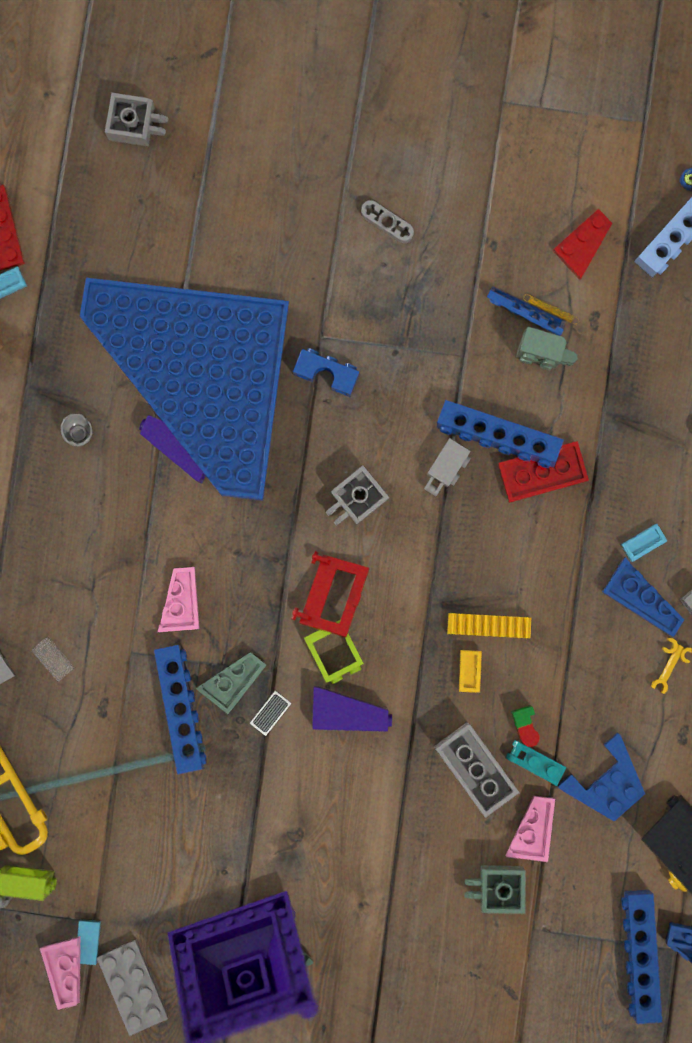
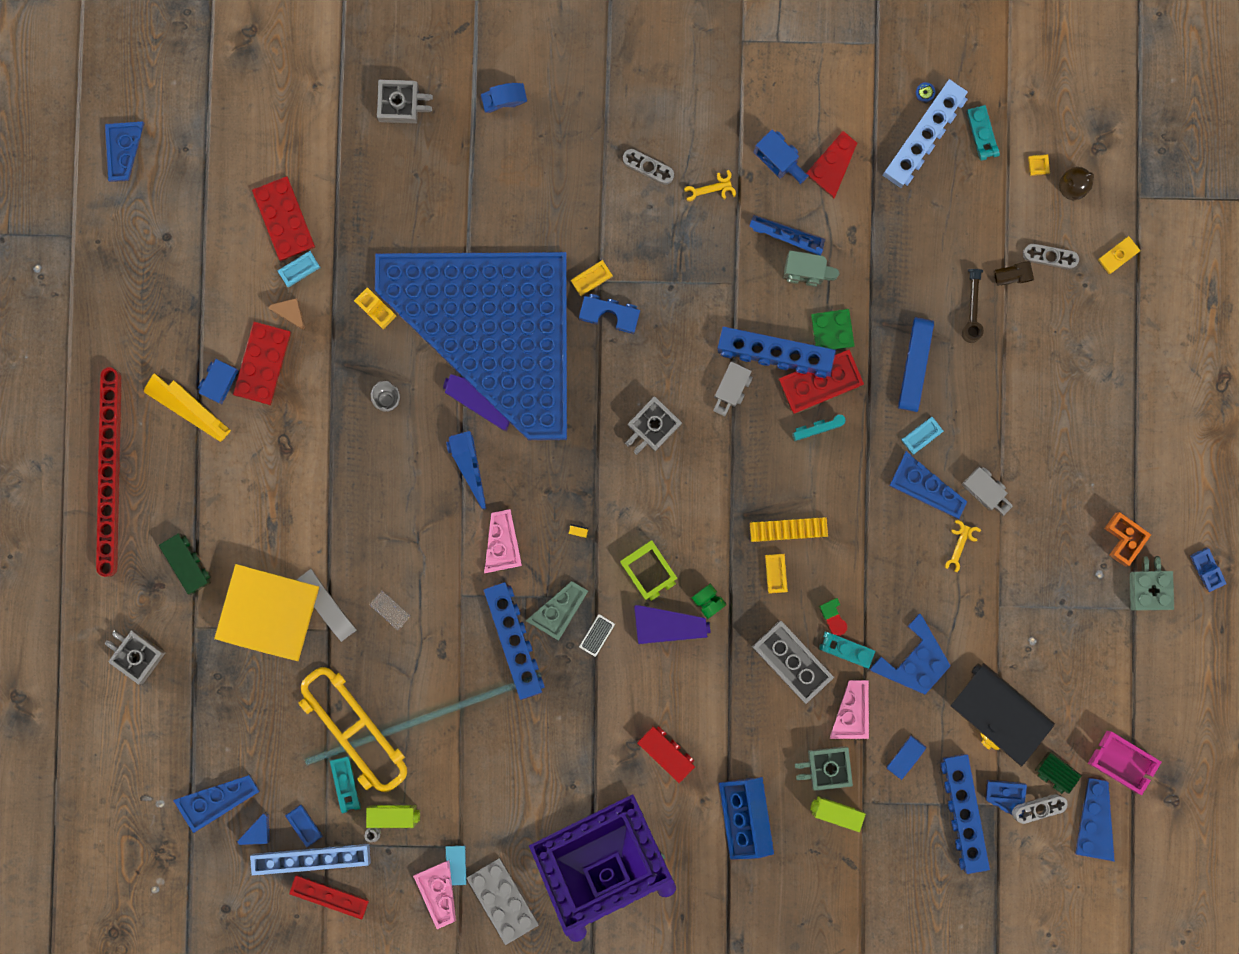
camera: 10 degrees left, 0 degrees up
(78, 335) = (375, 308): none -> yellow slope
(154, 506) = (464, 454): none -> blue wedge
(243, 127) = (504, 96): none -> blue brick
(264, 598) = (578, 530): none -> yellow piece
(312, 332) = (591, 278): none -> yellow plate
(320, 591) = (629, 515): red piece -> none
(328, 851) = (666, 753): none -> red brick
(394, 692) = (709, 601): none -> green wheel
(405, 932) = (746, 818): none -> blue slope
(465, 251) = (724, 185): none -> yellow bar
(505, 940) = (837, 813): none -> lime window
(528, 226) = (779, 156): none -> blue brick
(534, 521) = (819, 427): none -> teal plate
(541, 306) = (809, 230): yellow piece -> none
(562, 418) = (833, 329): none -> green plate
(585, 887) = (906, 757): none -> blue slope
(646, 466) = (916, 364): none -> blue beam

